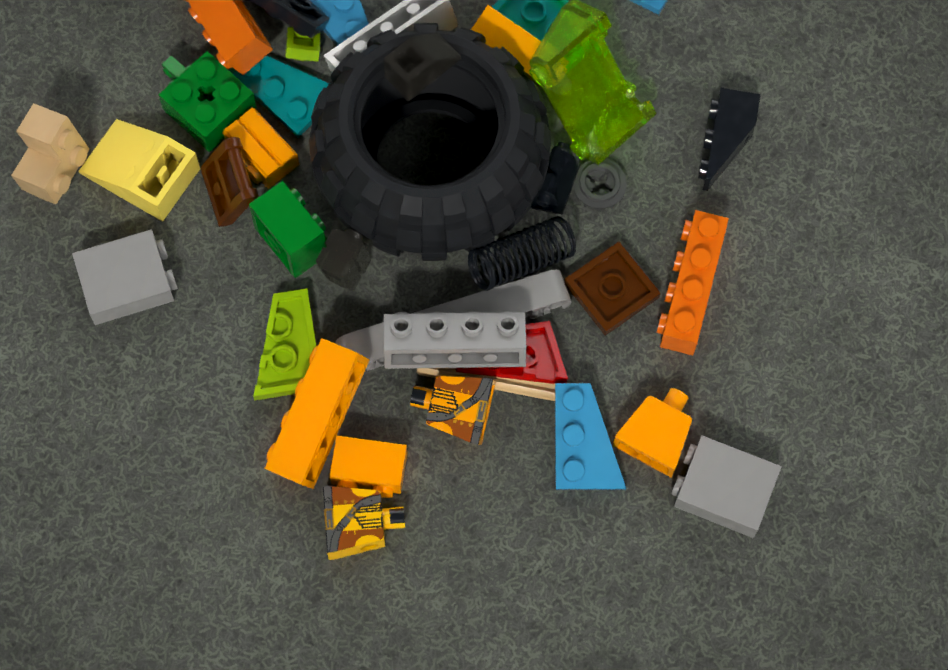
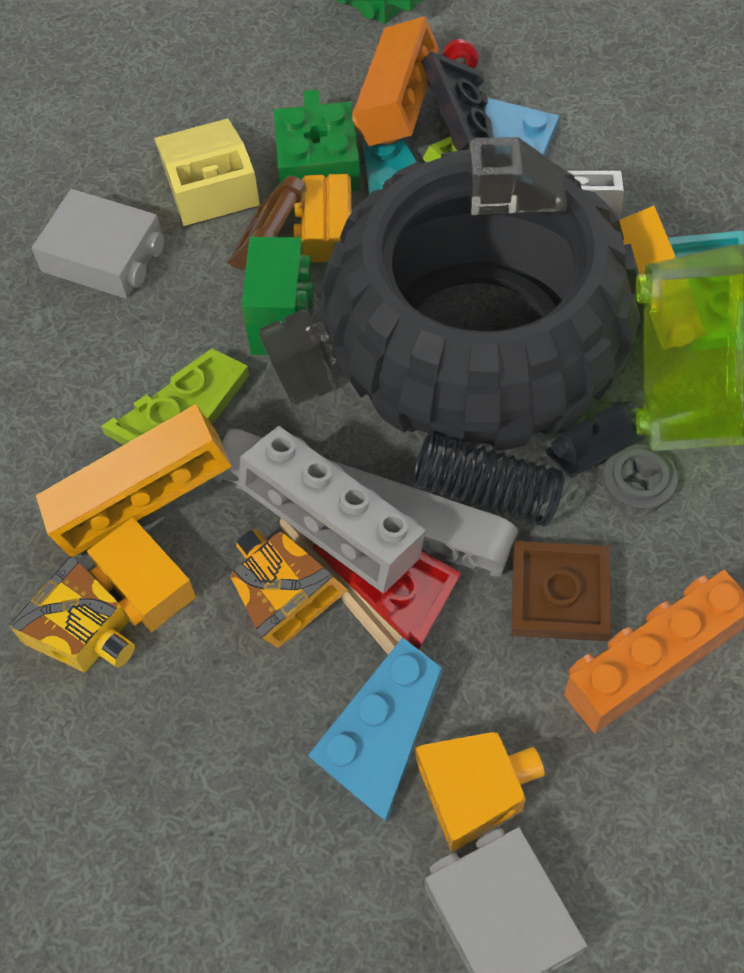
camera: 45 degrees right, 10 degrees down
(52, 154) = (143, 106): tan brick -> none

